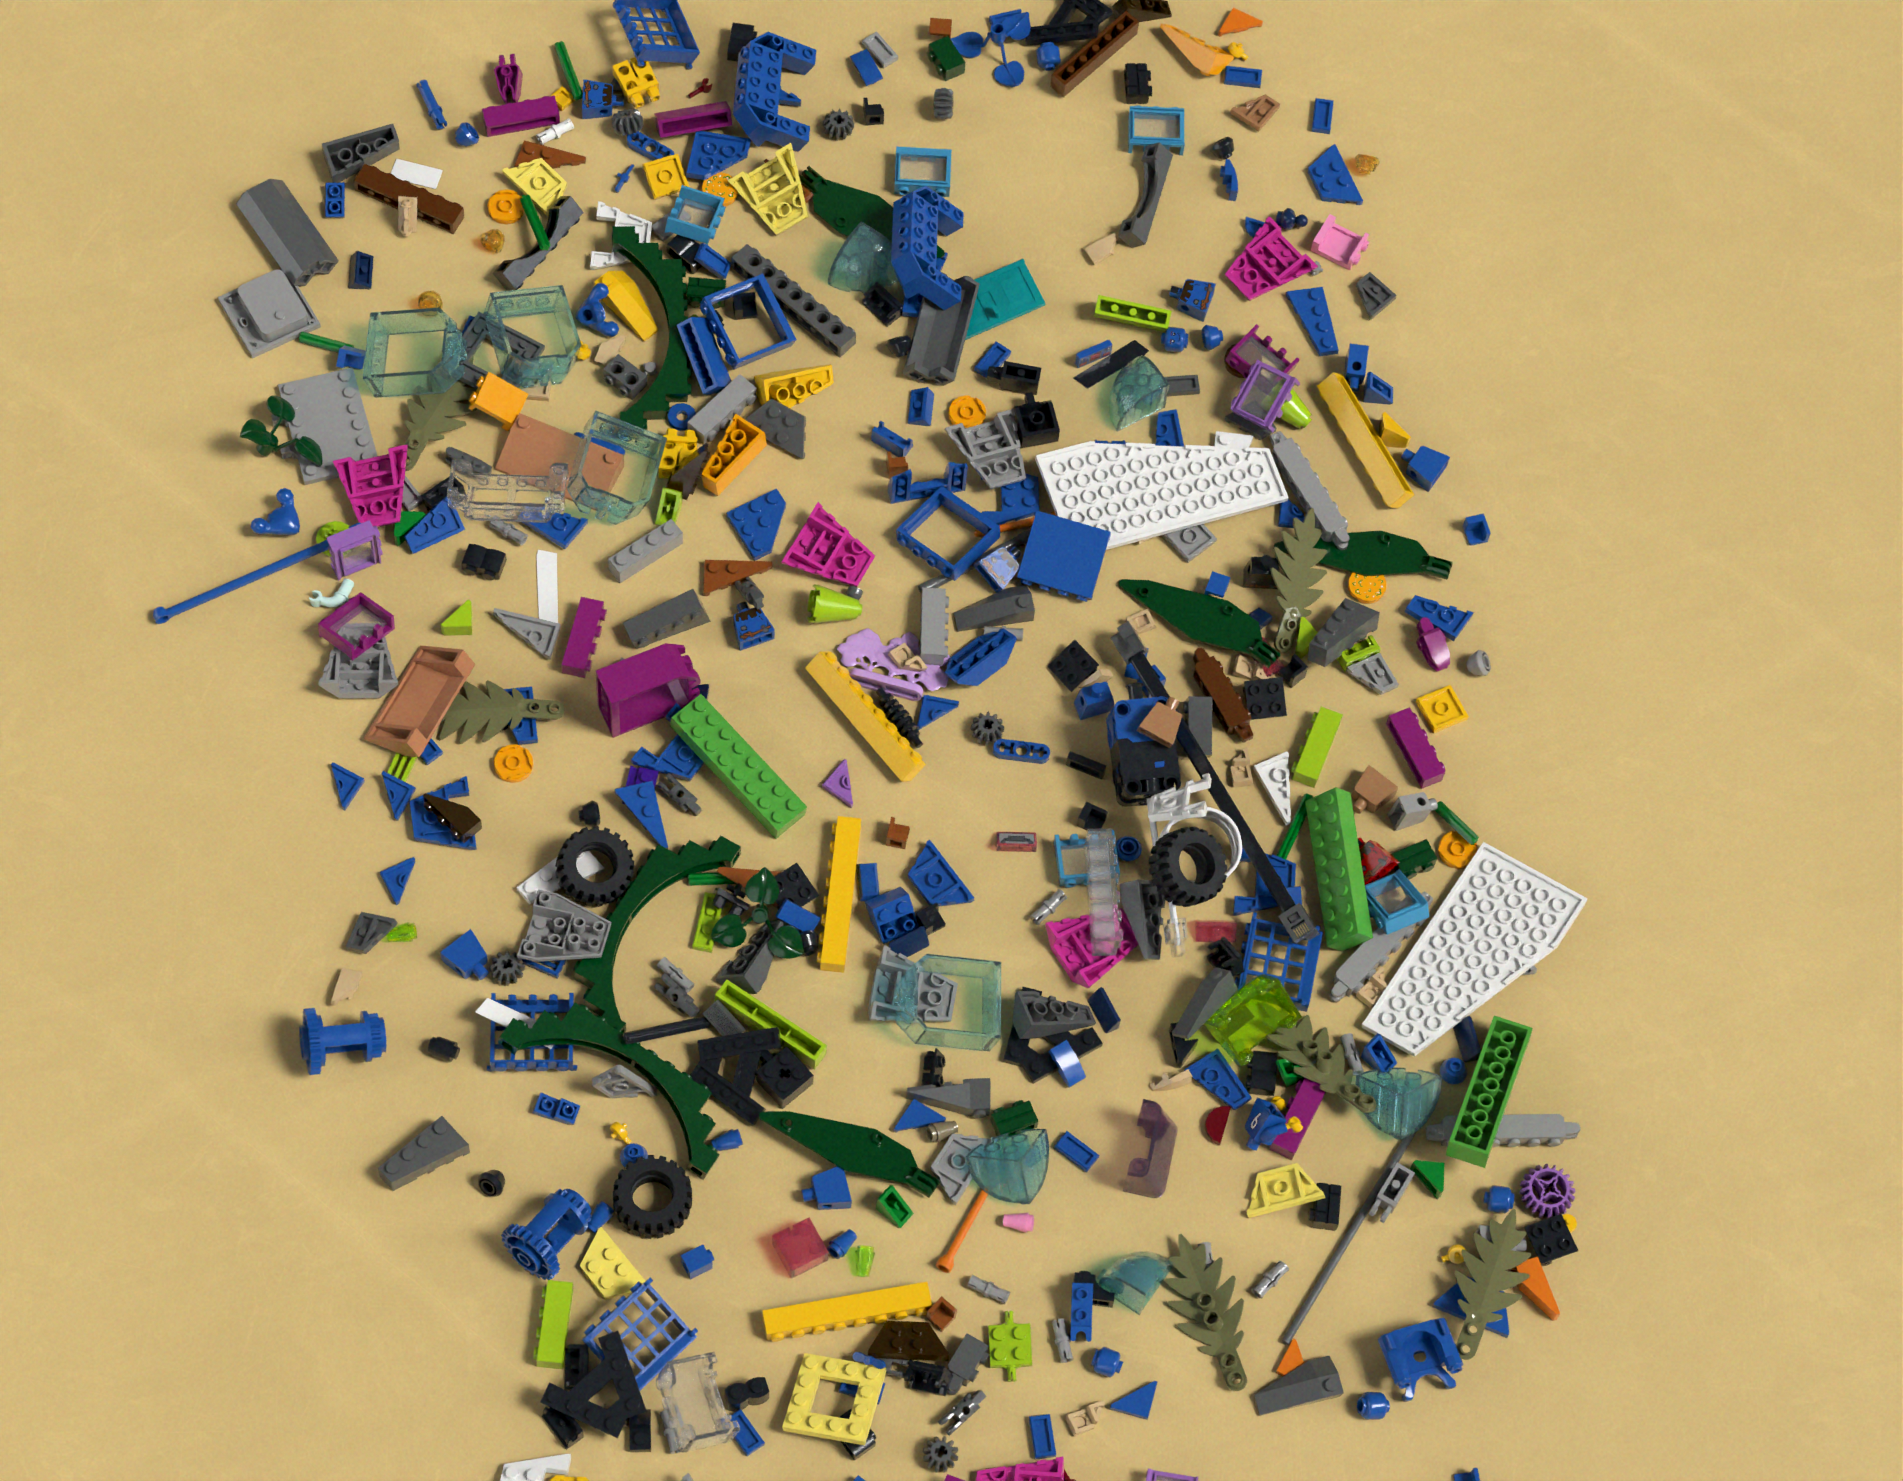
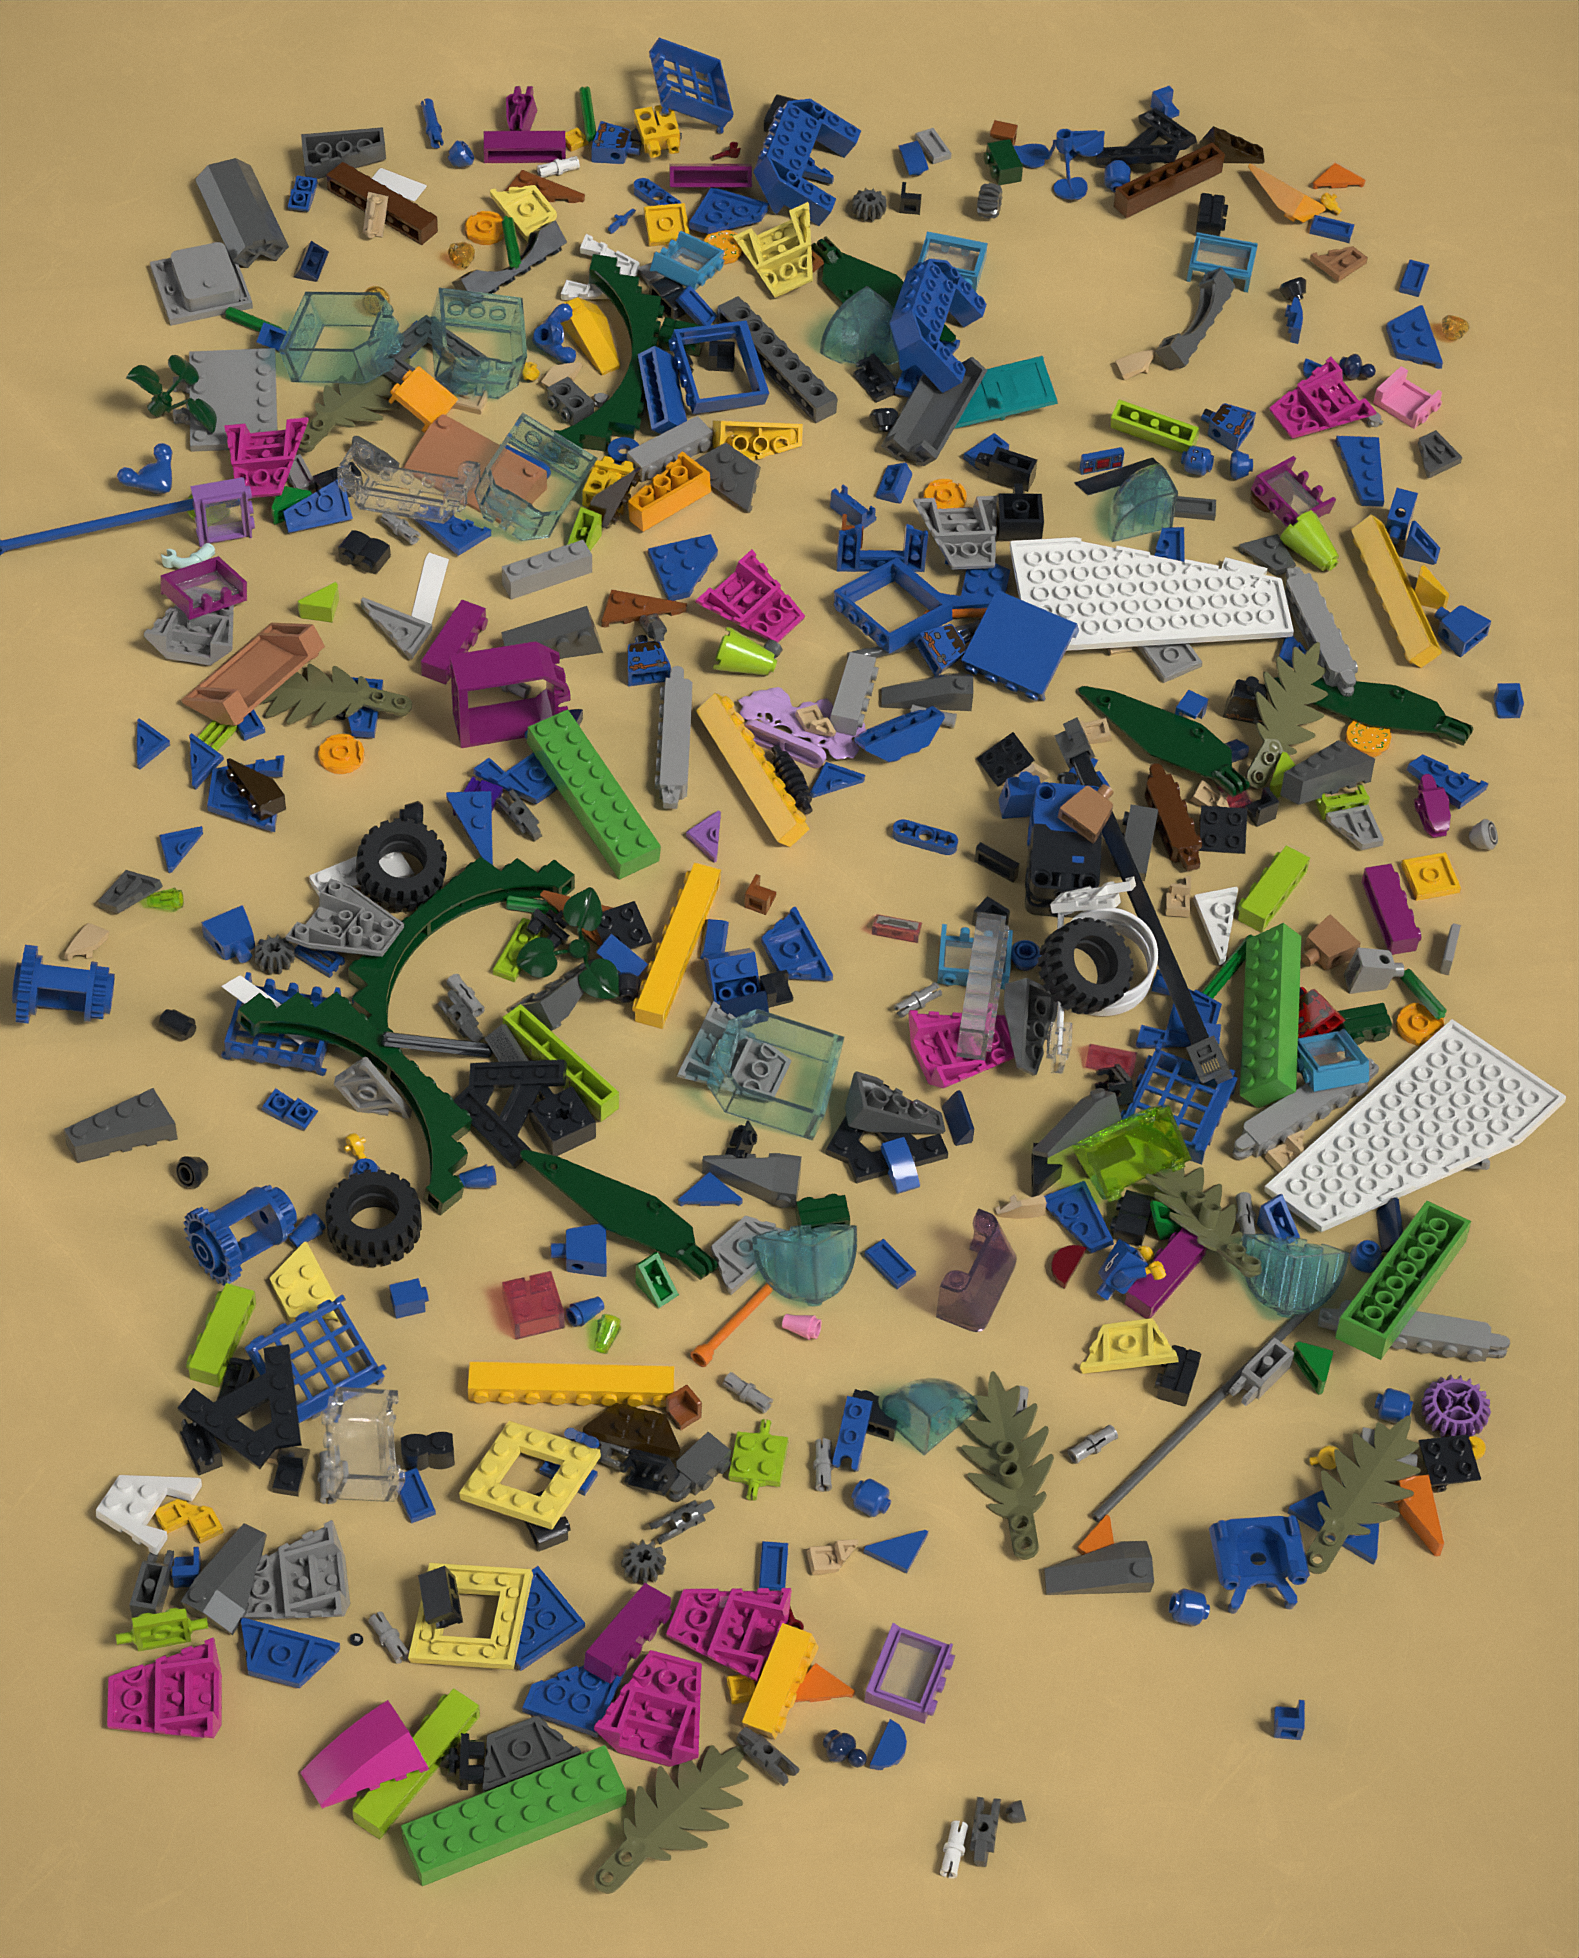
camera: 15 degrees right, 10 degrees down
(627, 122) = (638, 167): dark grey gear -> none
(793, 697) = (675, 738): none -> light grey hinge
(941, 1130) = (733, 1211): dark tan cone -> none
(987, 721) = (890, 805): dark grey gear -> none
(1263, 395) = (1285, 523): window -> none
(1470, 776) = (1450, 949): none -> light grey tile

